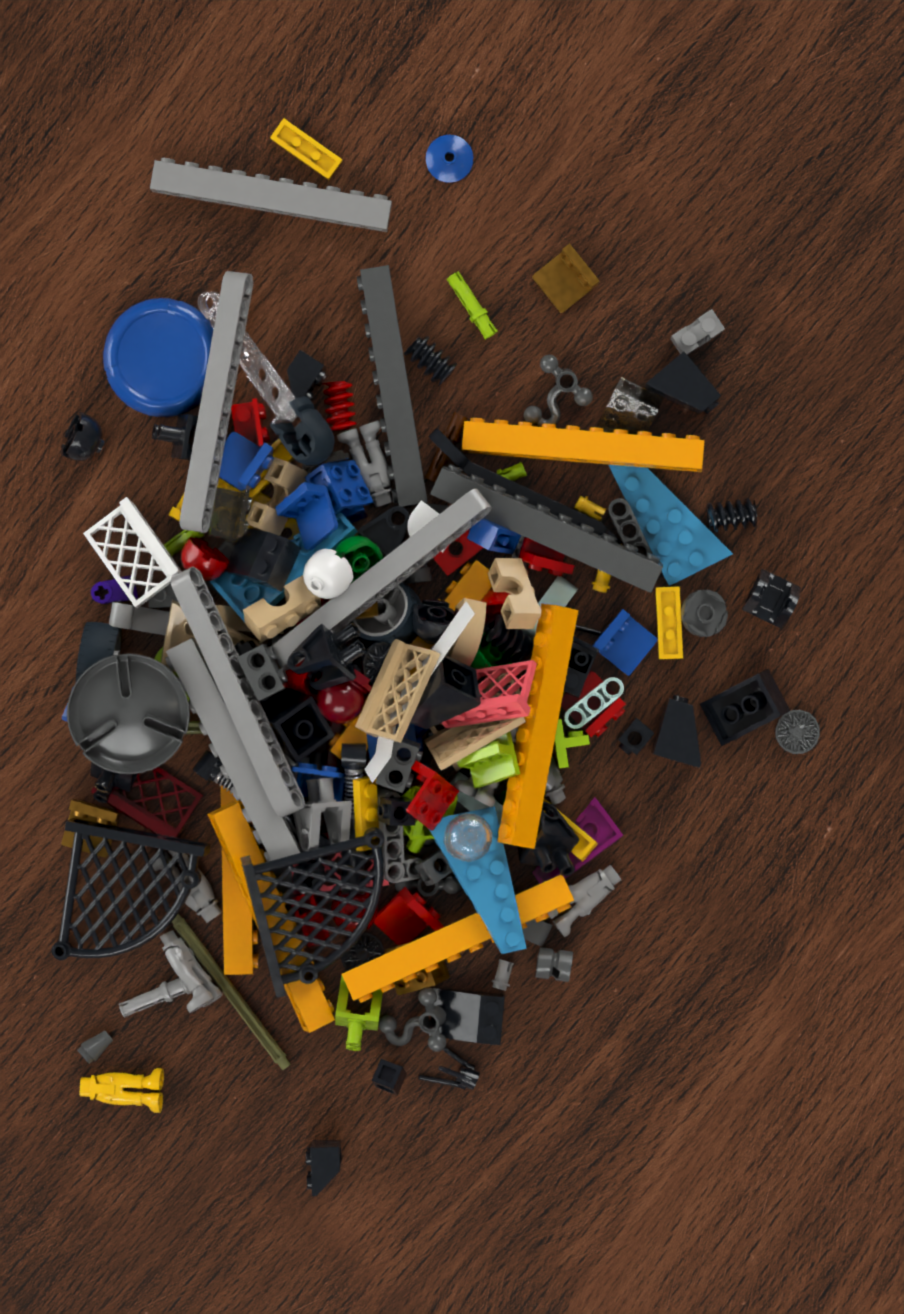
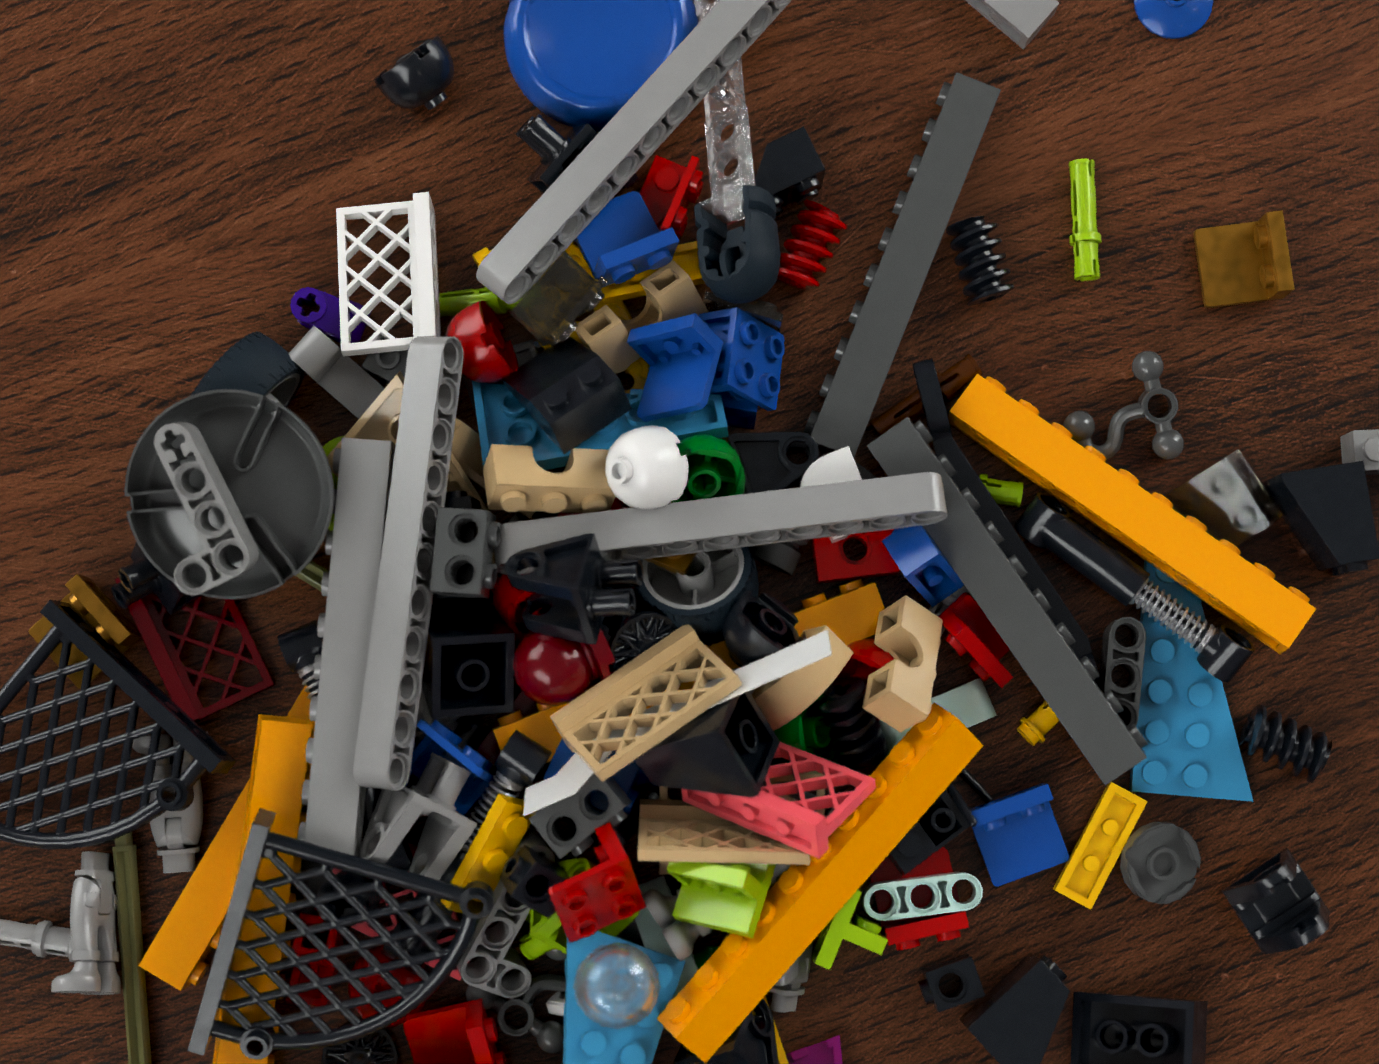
camera: 35 degrees right, 5 degrees down
(116, 727) = (198, 504): none -> light grey beam
(374, 473) = (804, 374): light grey piece -> none
(428, 872) = (527, 996): dark grey brick -> none
(548, 476) = (1050, 526): none -> black piece
(588, 507) = (1081, 606): yellow pin -> none

